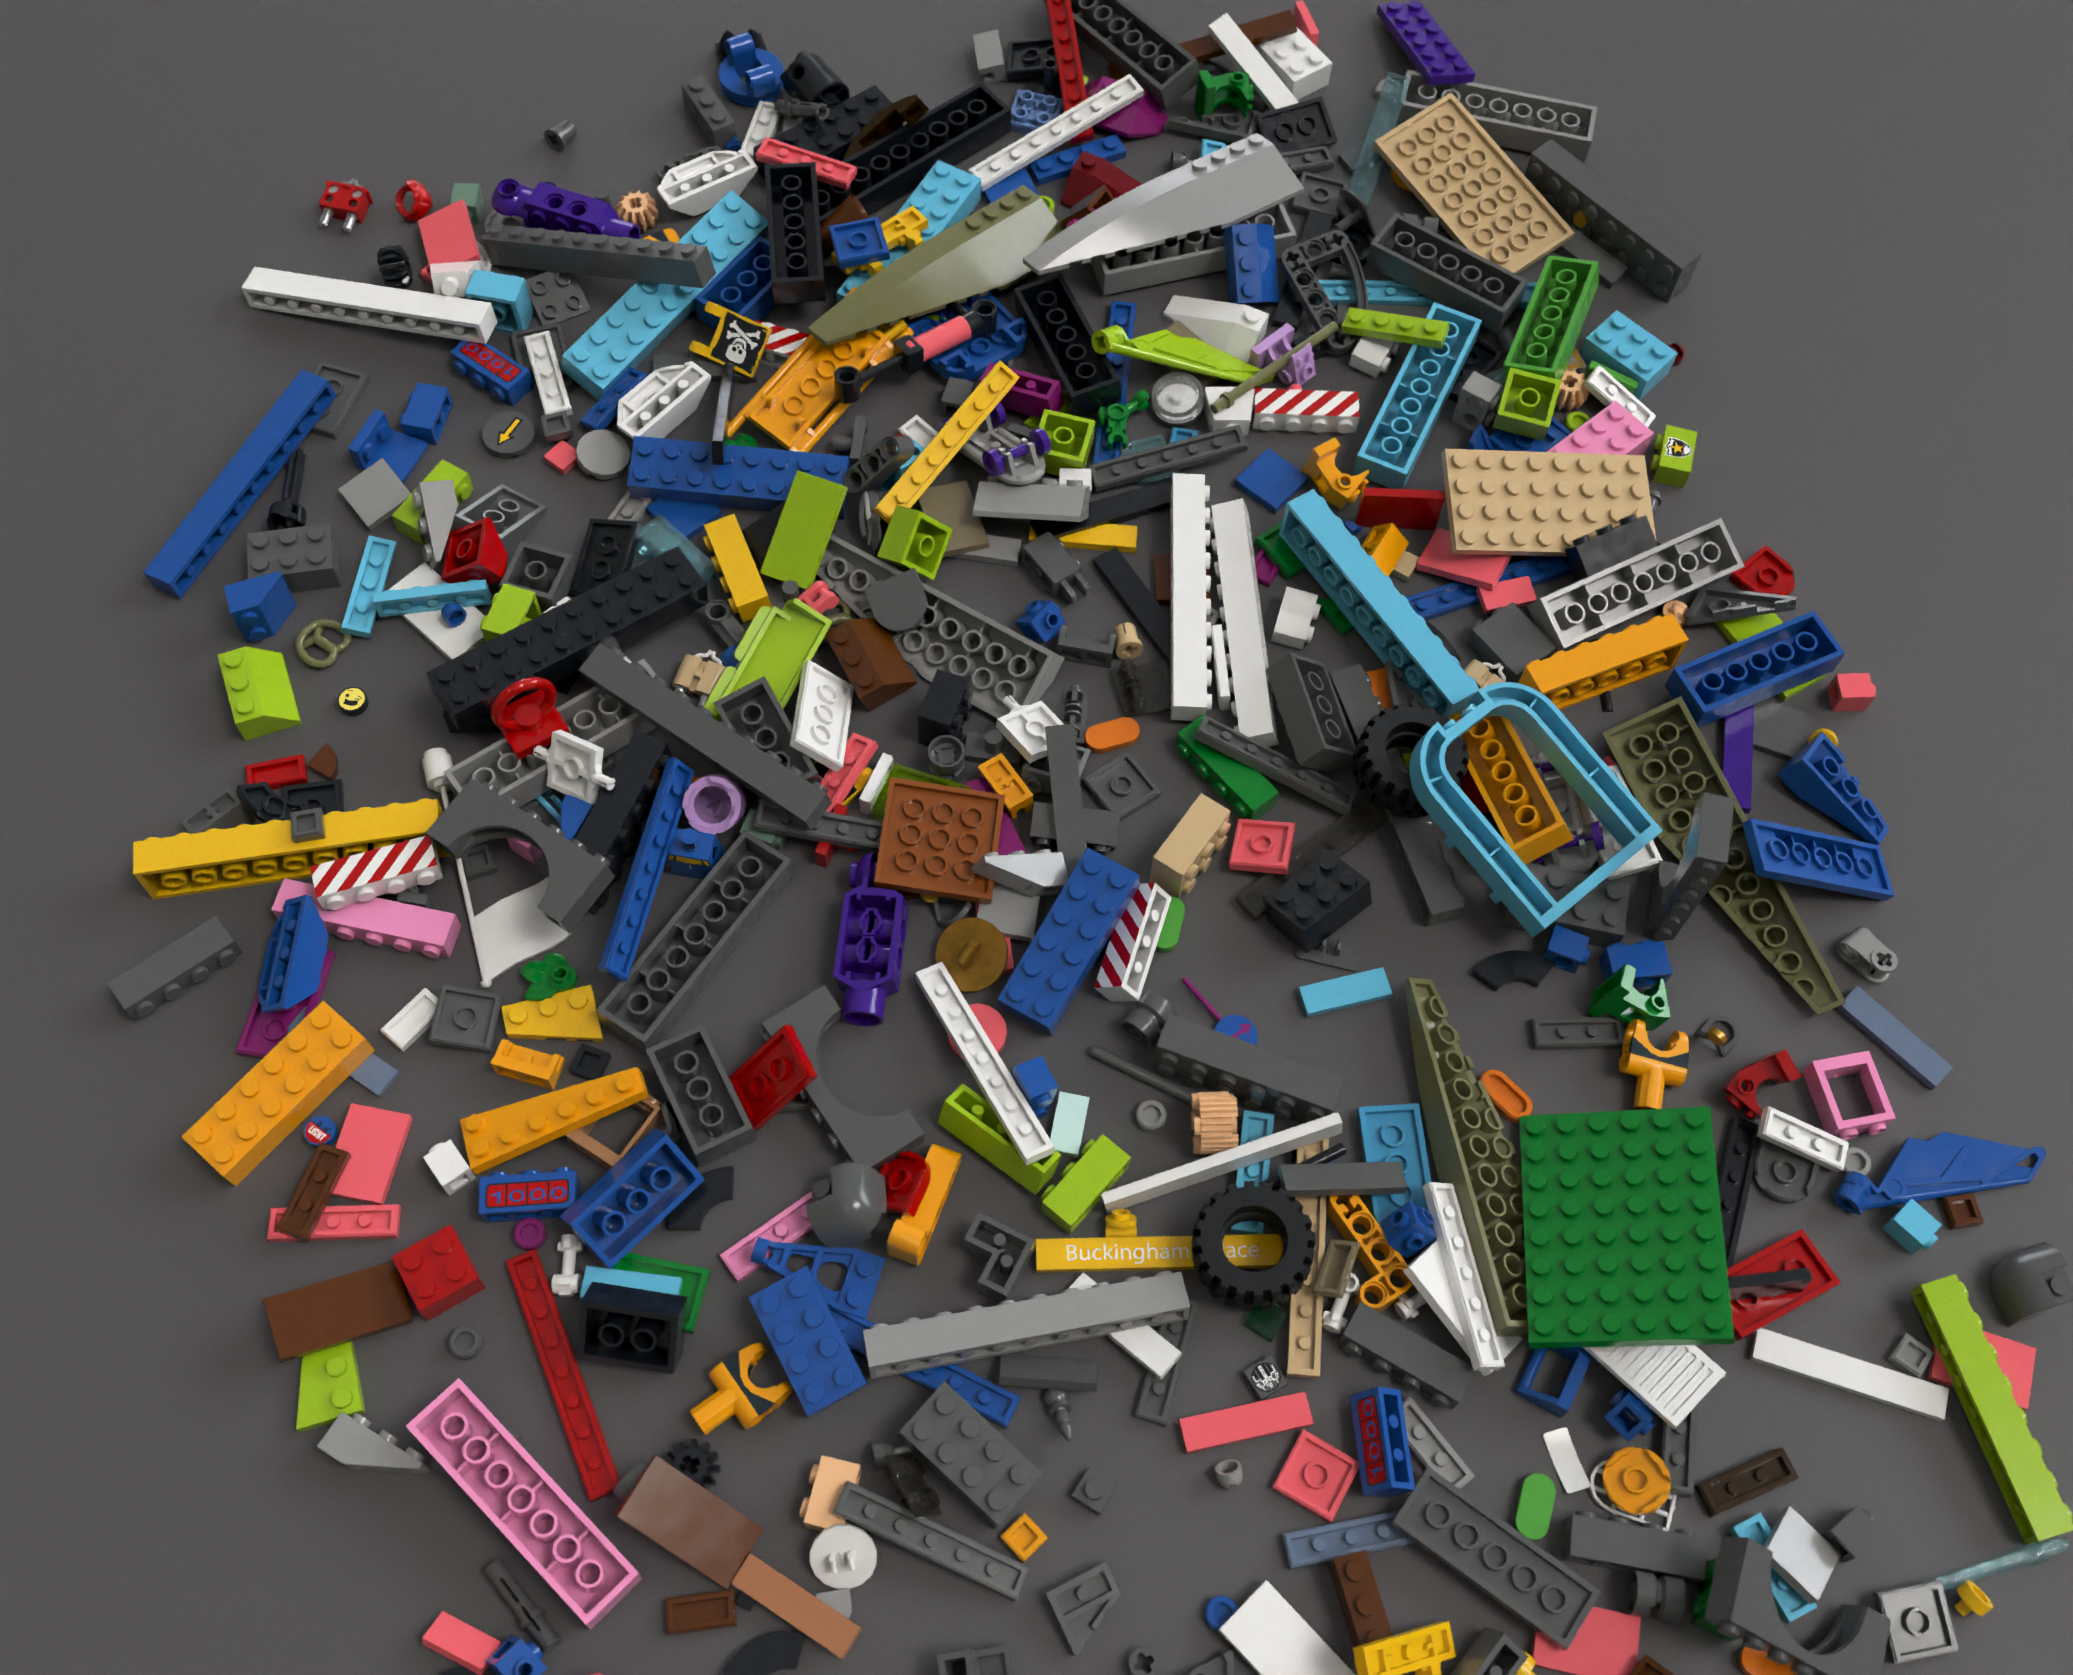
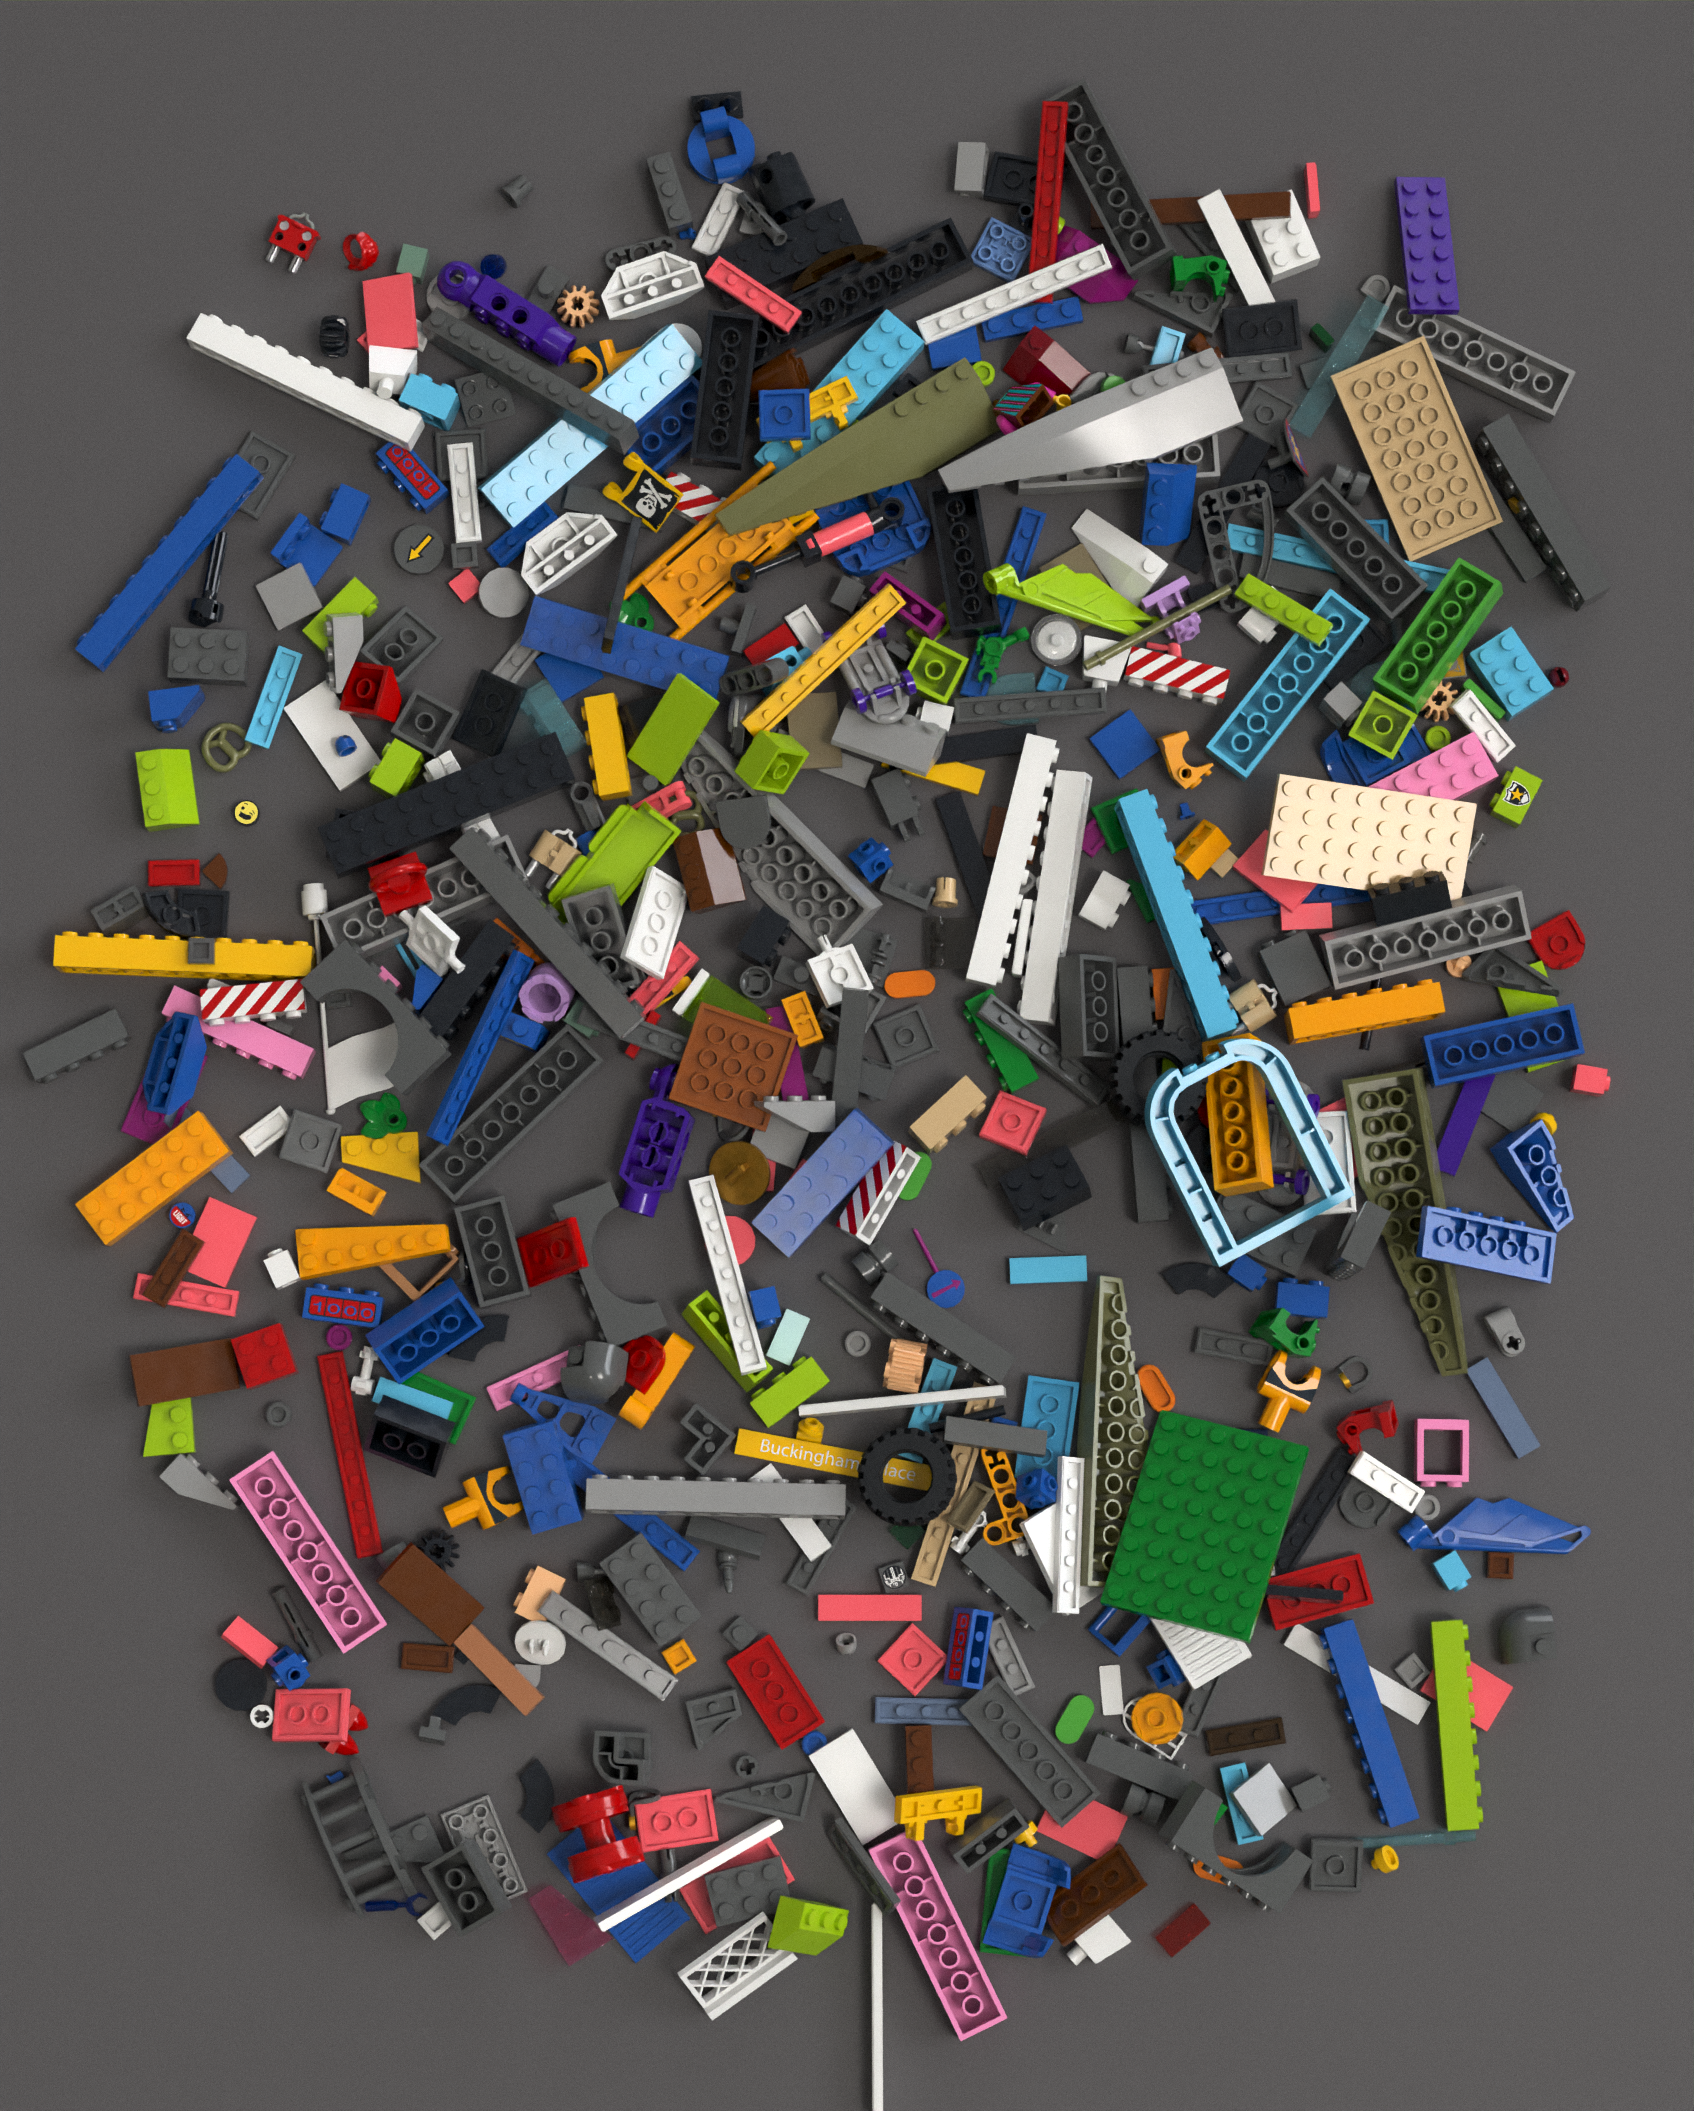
camera: 10 degrees right, 20 degrees up
(431, 598) = (318, 725): medium azure plate -> none
(589, 1063) = (406, 1201): black tile -> none
(1156, 1555) = (775, 1691): none -> red plate
(1352, 128) = (1321, 337): none -> dark green tile
(1401, 507) = (1231, 808): red tile -> none
(1892, 1432) = (1369, 1723): none -> blue brick

